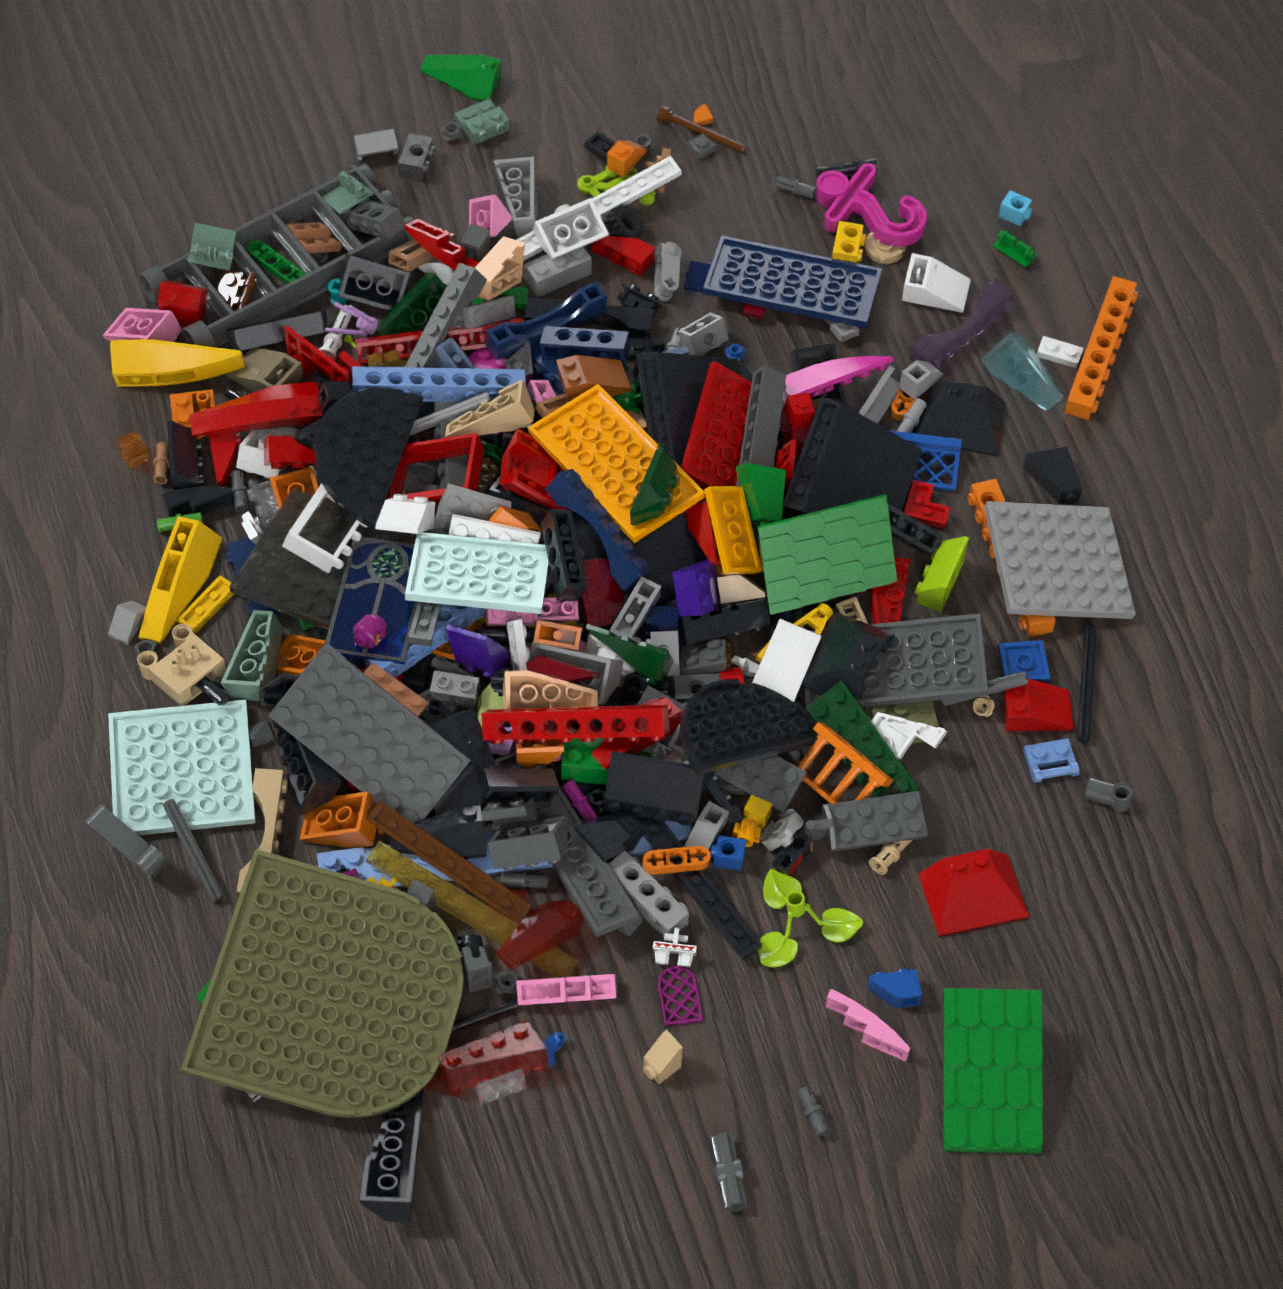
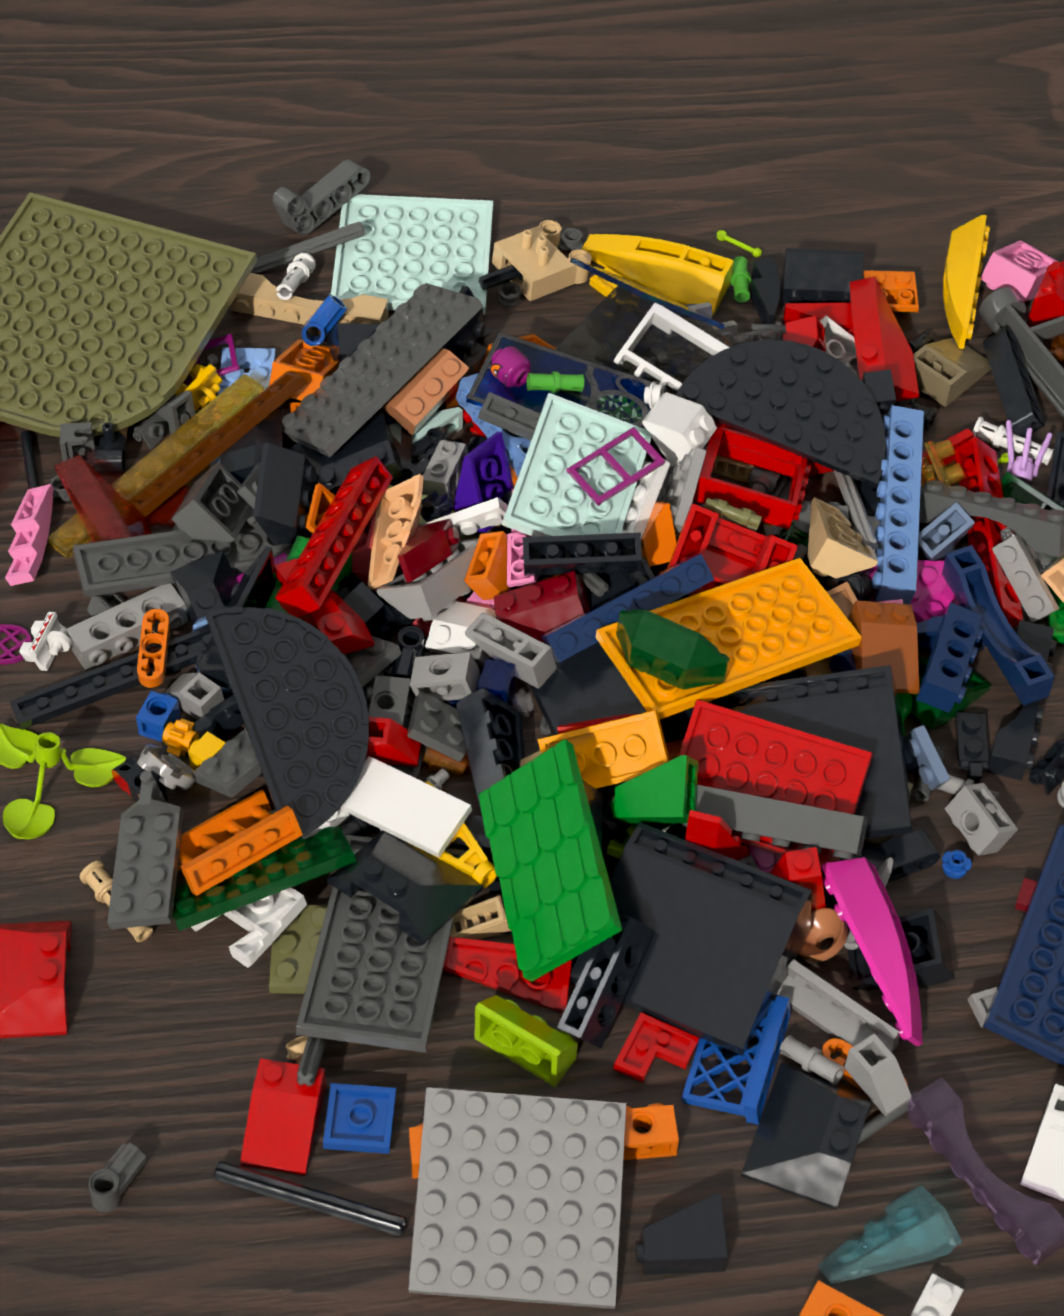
camera: 100 degrees right, 5 degrees down
(121, 543) = (722, 235): none -> lime hinge
(126, 621) = (614, 223): light grey slope -> none
(132, 449) = (846, 239): clear orange brick -> none
(228, 847) = (297, 273): none -> white pin
(255, 657) = (529, 312): sand green wedge -> none
(258, 554) = (647, 293): none -> piece
(292, 817) = (324, 319): none -> blue piece
(313, 358) = (947, 397): red slope -> none
(373, 537) = (653, 393): none -> white plate
(377, 600) = (555, 382): none -> bright green pin
(479, 535) = (628, 480): none -> magenta window
(493, 472) = (742, 516): none -> olive plate
(521, 360) = (935, 600): flat silver piece -> none
(645, 659) = (441, 626): dark green wedge -> none
(697, 589) = (526, 713): dark purple slope -> none
(1050, 754) = (206, 1120): medium blue plate -> none

